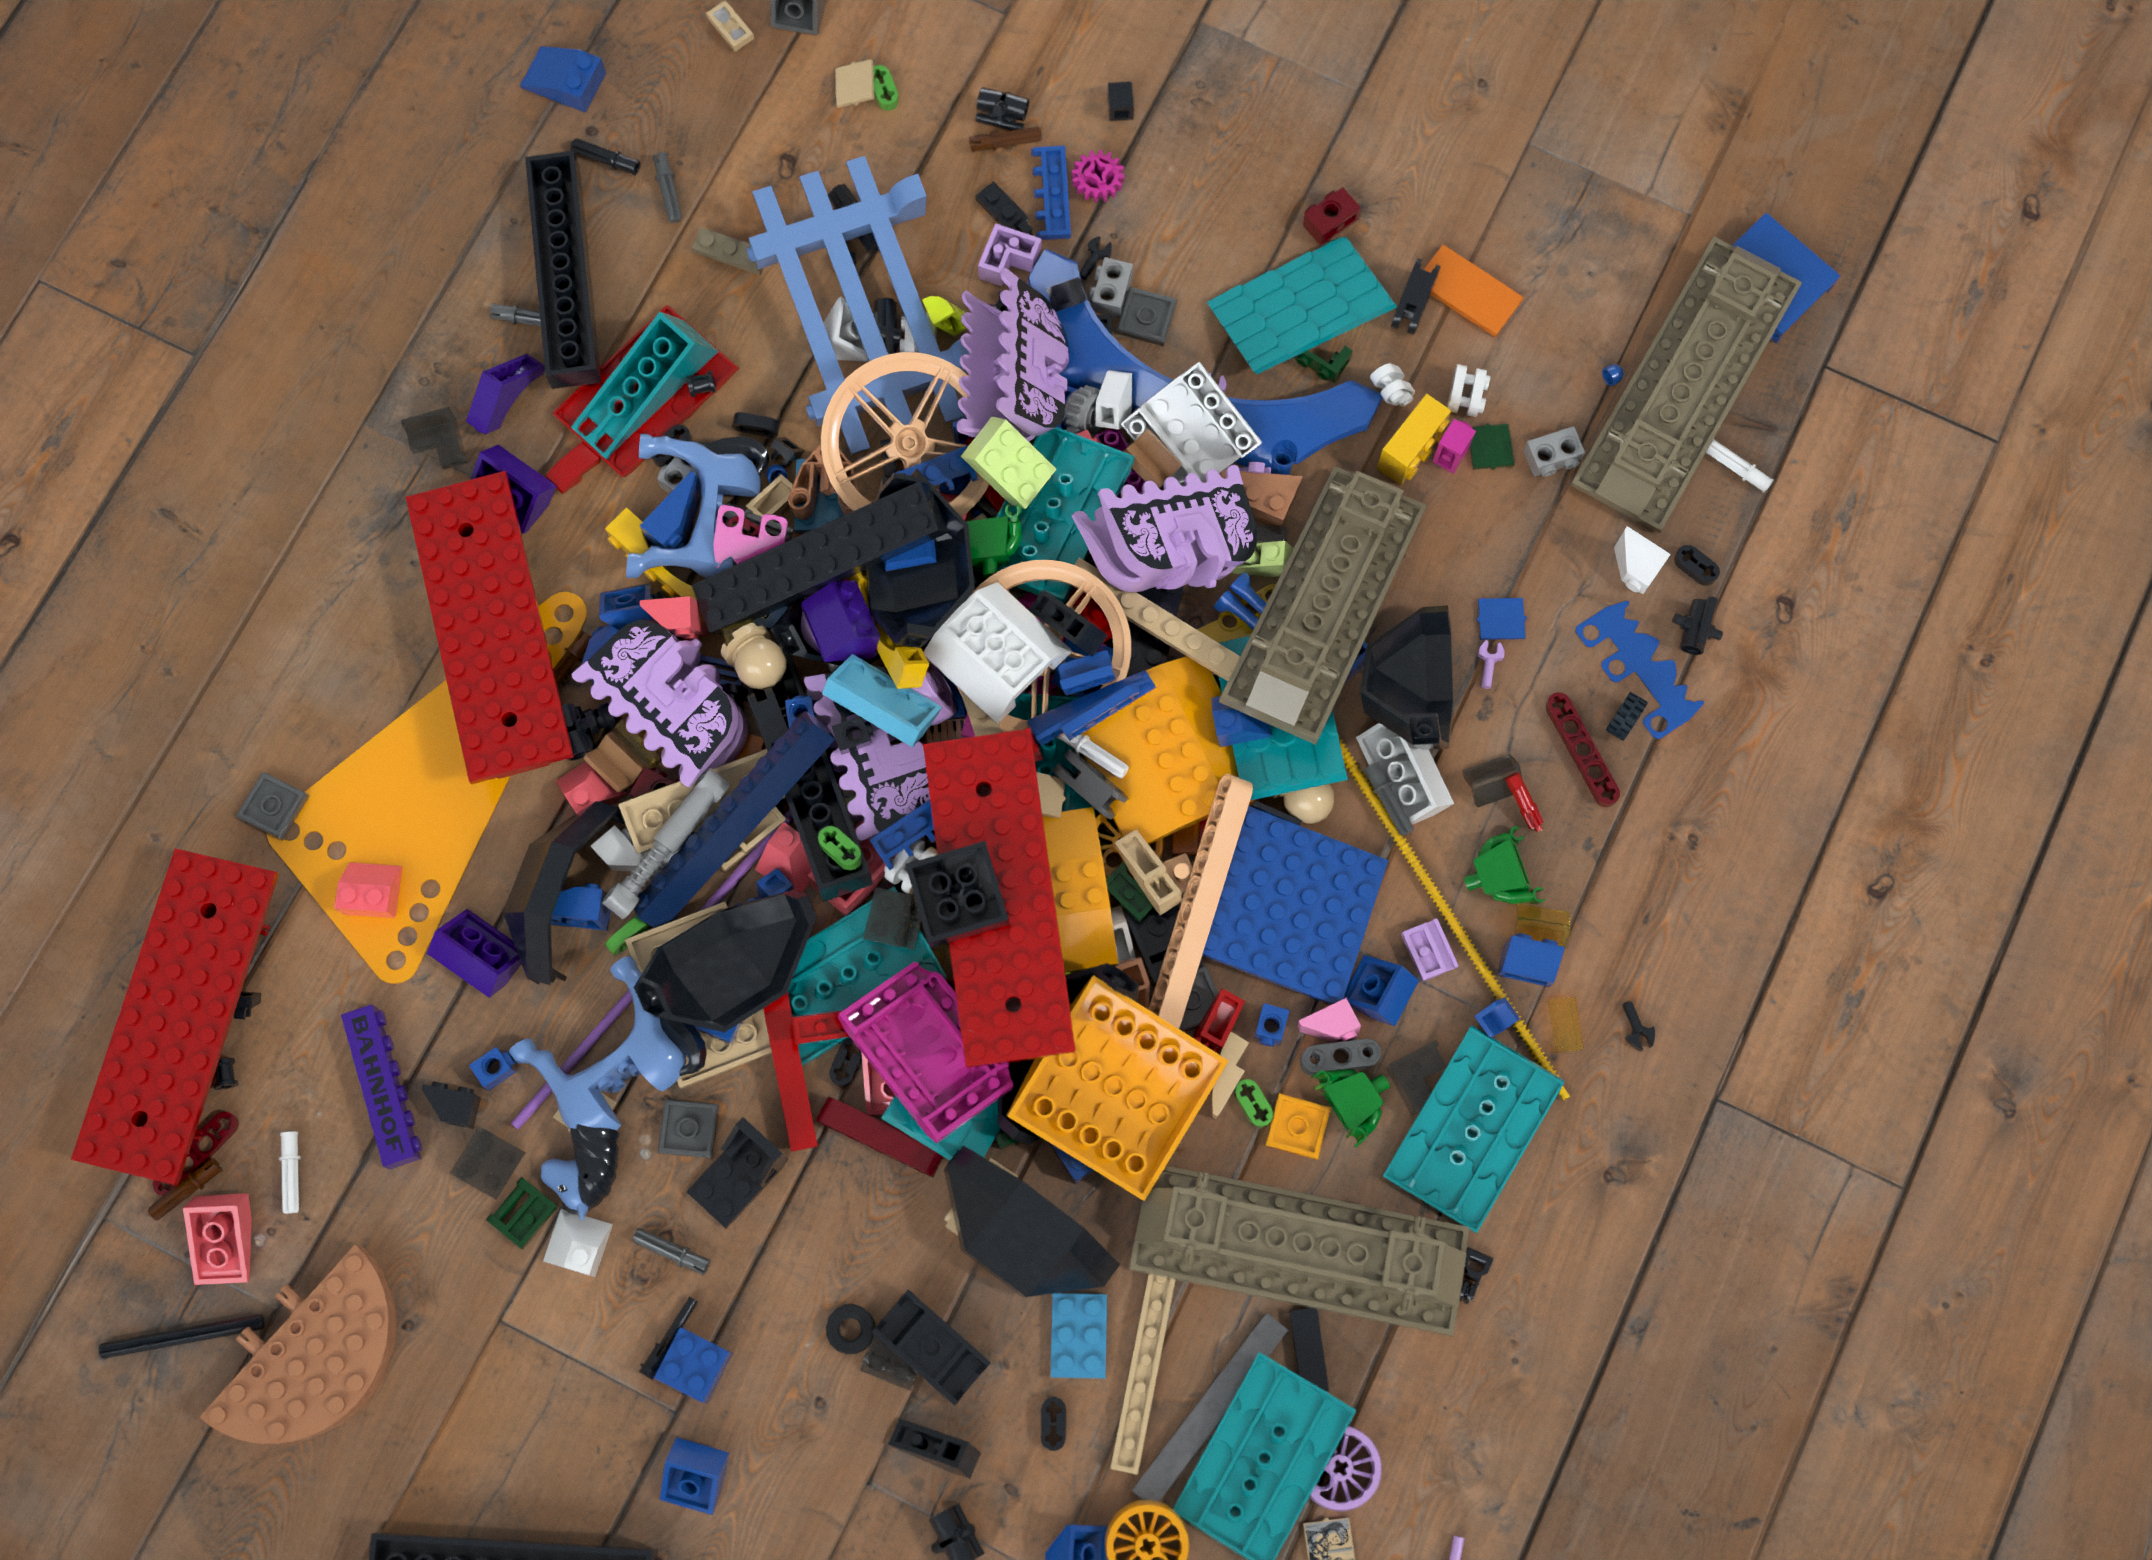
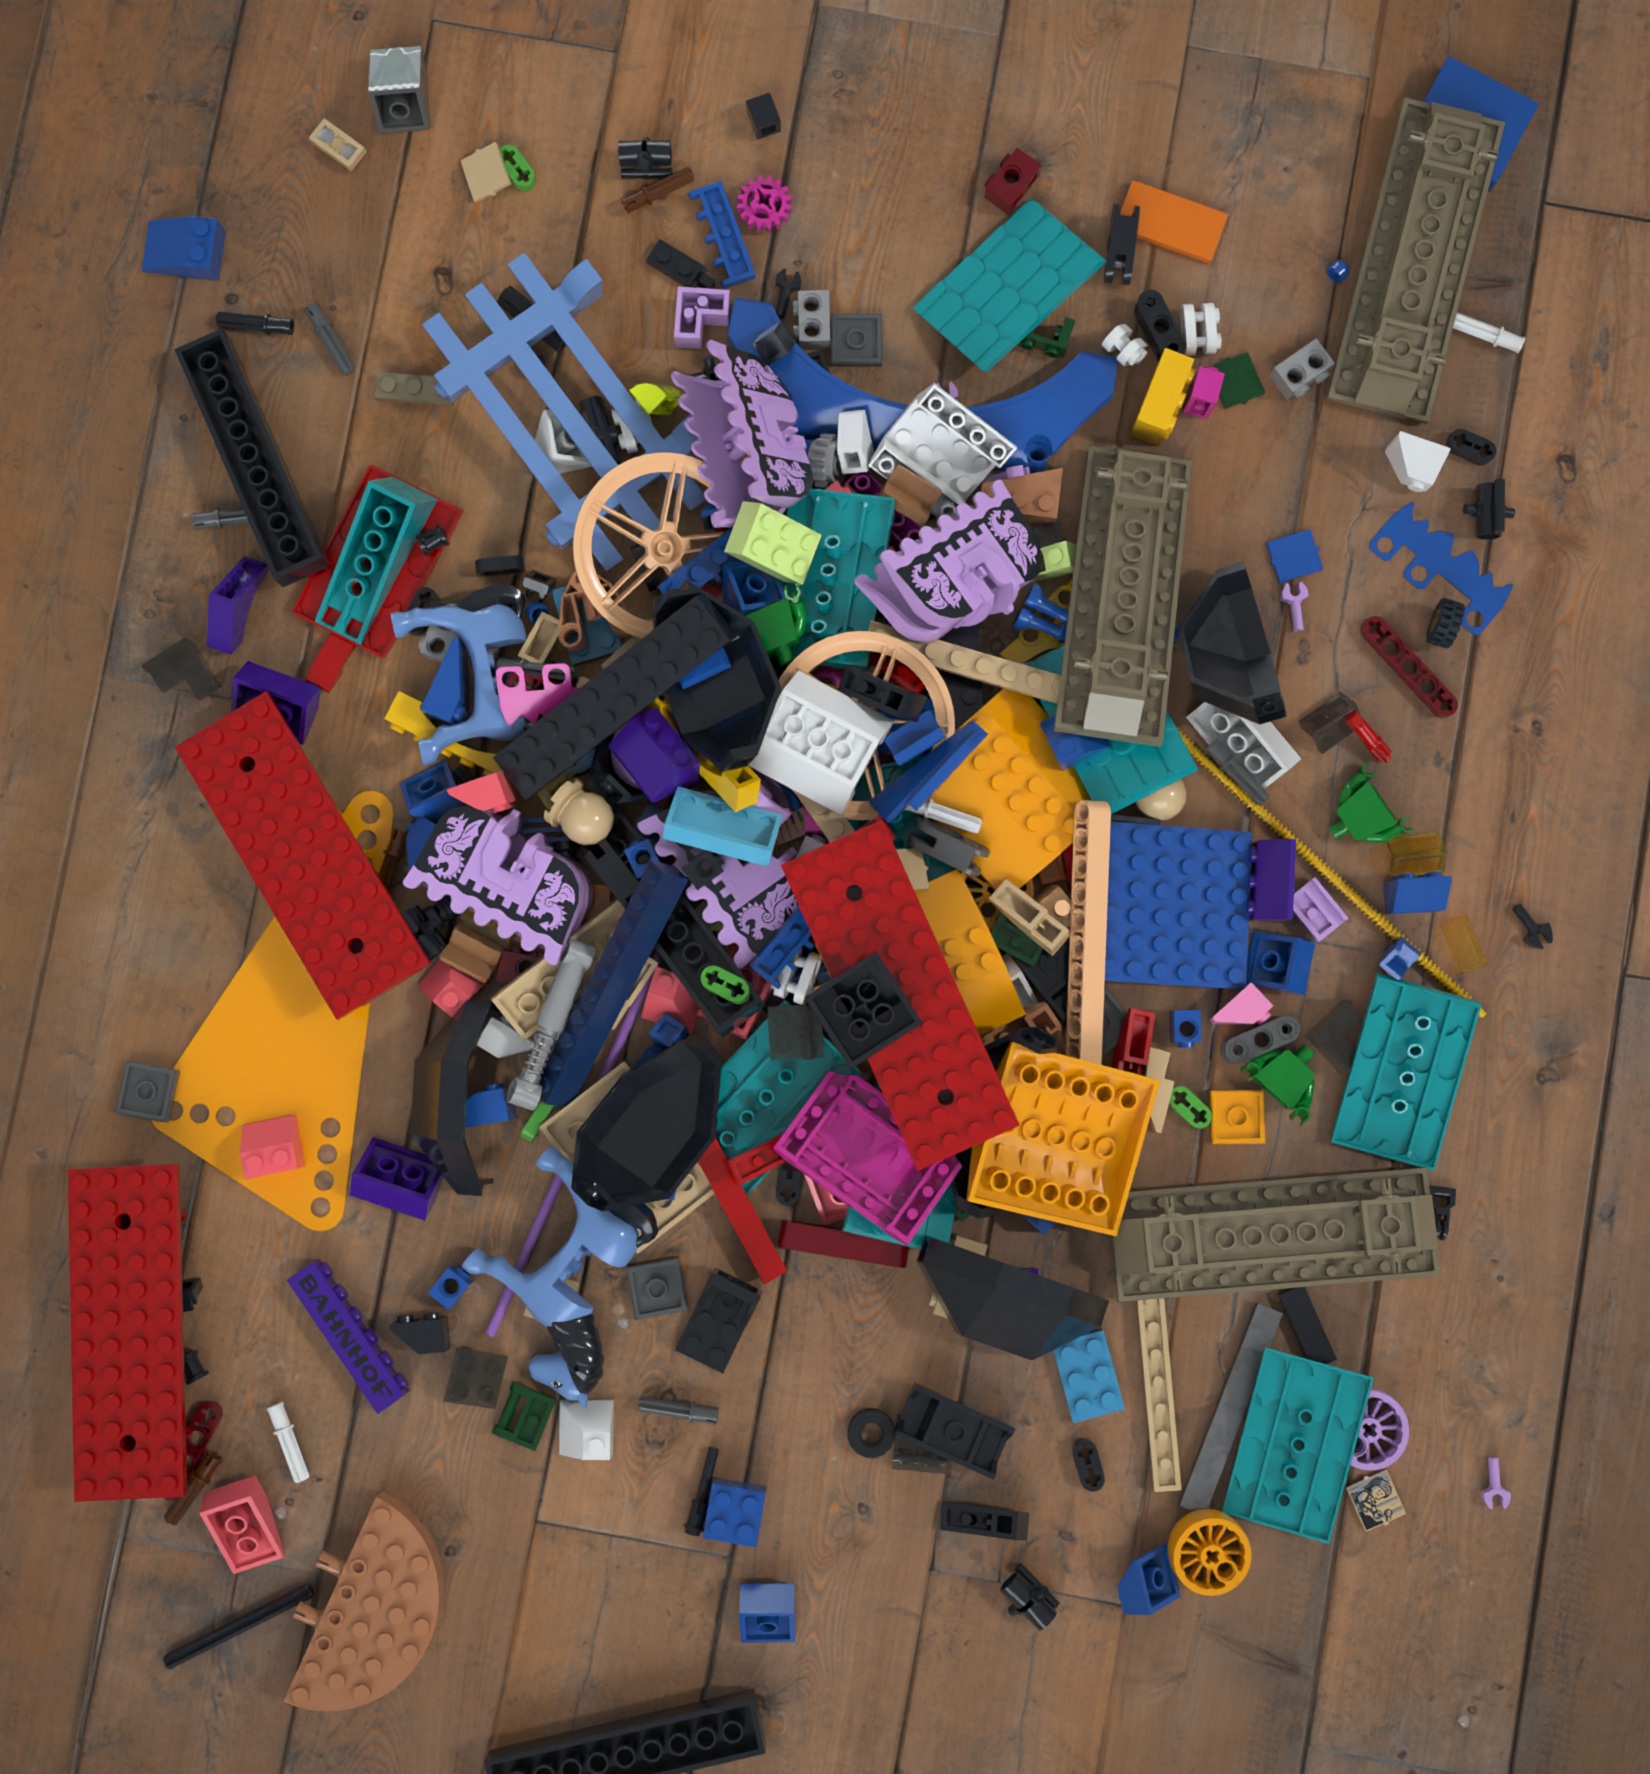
camera: 15 degrees left, 10 degrees up
(976, 498) = (749, 588): none -> blue slope
(1392, 908) = (1272, 880): none -> dark purple slope
(1428, 364) = (1153, 312): none -> black piece

